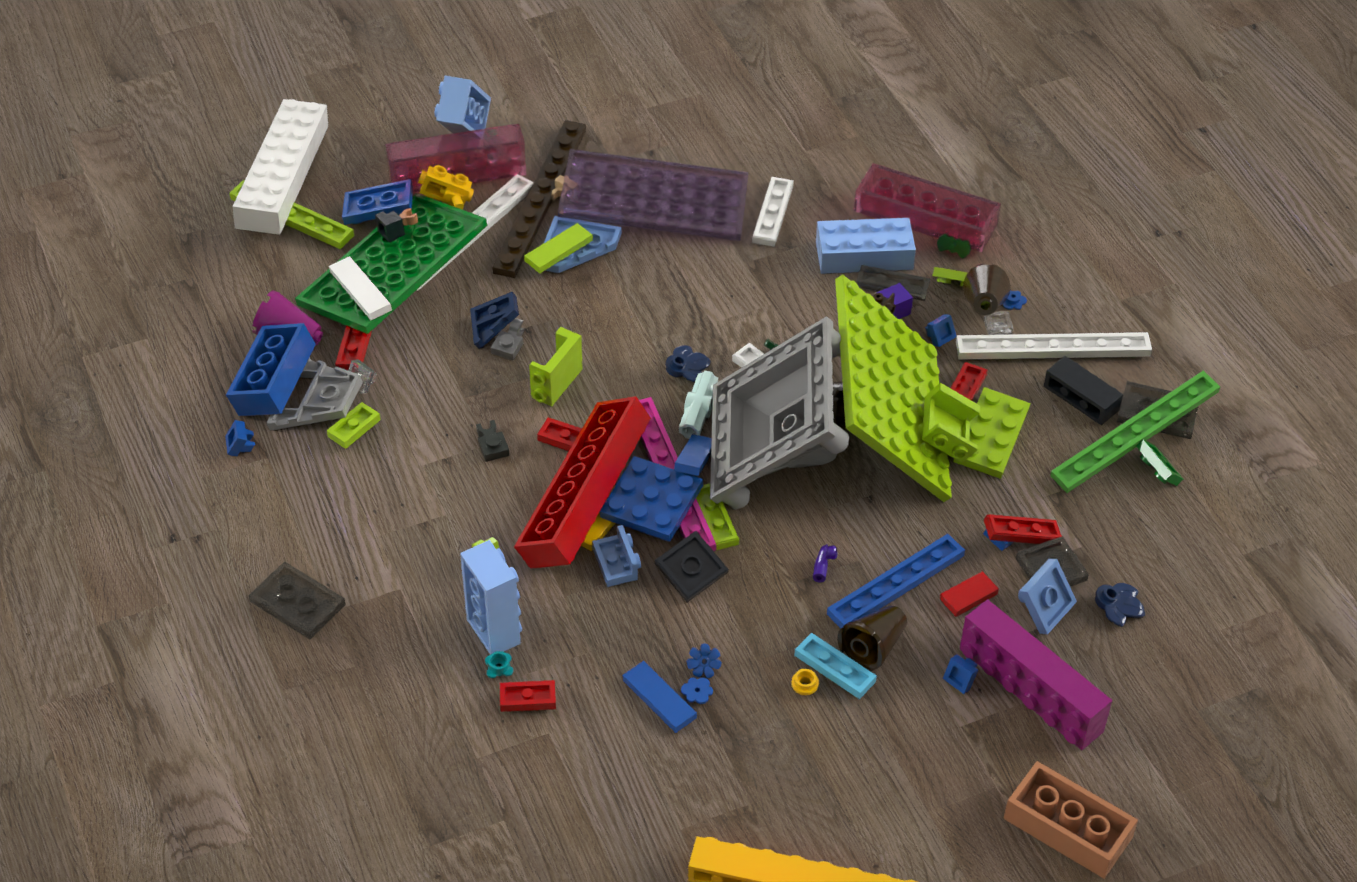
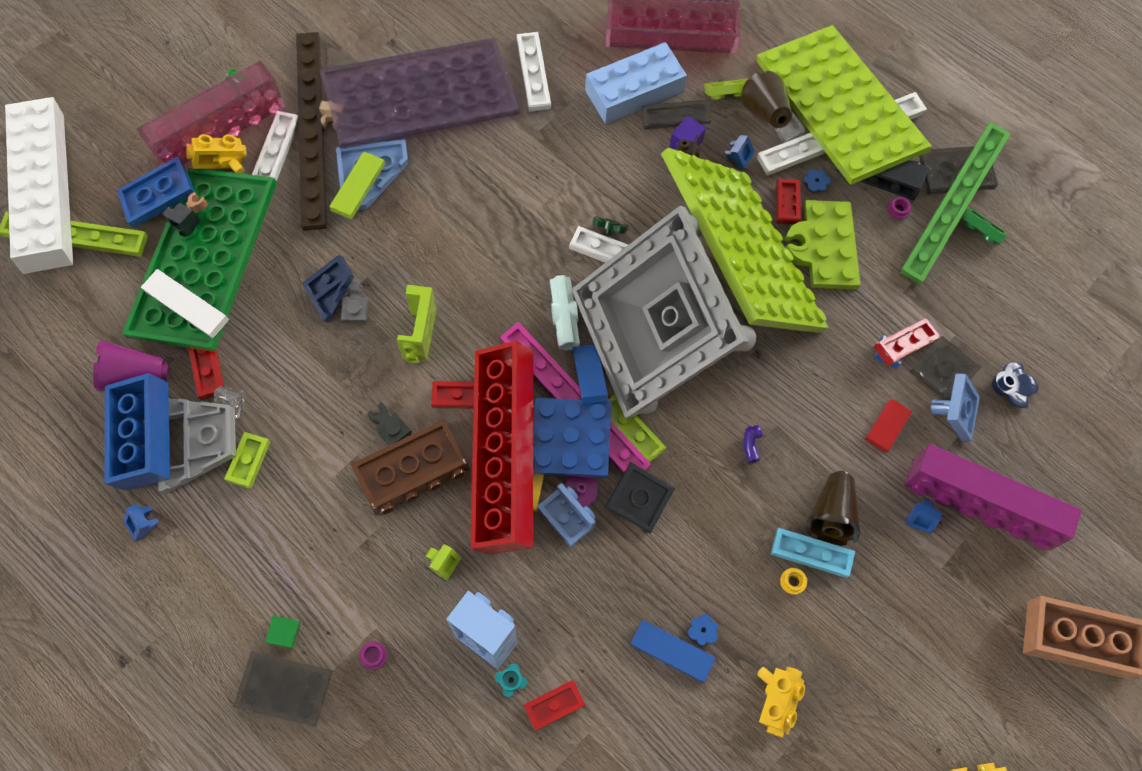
camera: 25 degrees left, 20 degrees up
(318, 561) = (283, 632): none -> green tile
(387, 604) = (373, 655): none -> magenta plate
(462, 105) = (196, 62): light blue brick -> none
(493, 476) = (410, 468): none -> reddish brown bracket
(645, 546) = (584, 488): none -> magenta piece
(686, 363) = (534, 267): dark blue plate -> none
(704, 660) = (697, 597): blue plant -> none
(740, 763) = (783, 694): none -> yellow brick
(896, 581) = (823, 441): blue plate -> none
(948, 422) = (802, 260): lime panel -> none
(954, 244) = (711, 55): dark green piece -> none
(1006, 377) = (816, 180): none -> blue plant
(1065, 320) = (844, 105): none -> lime plate
(1079, 423) = (901, 203): none -> magenta plate

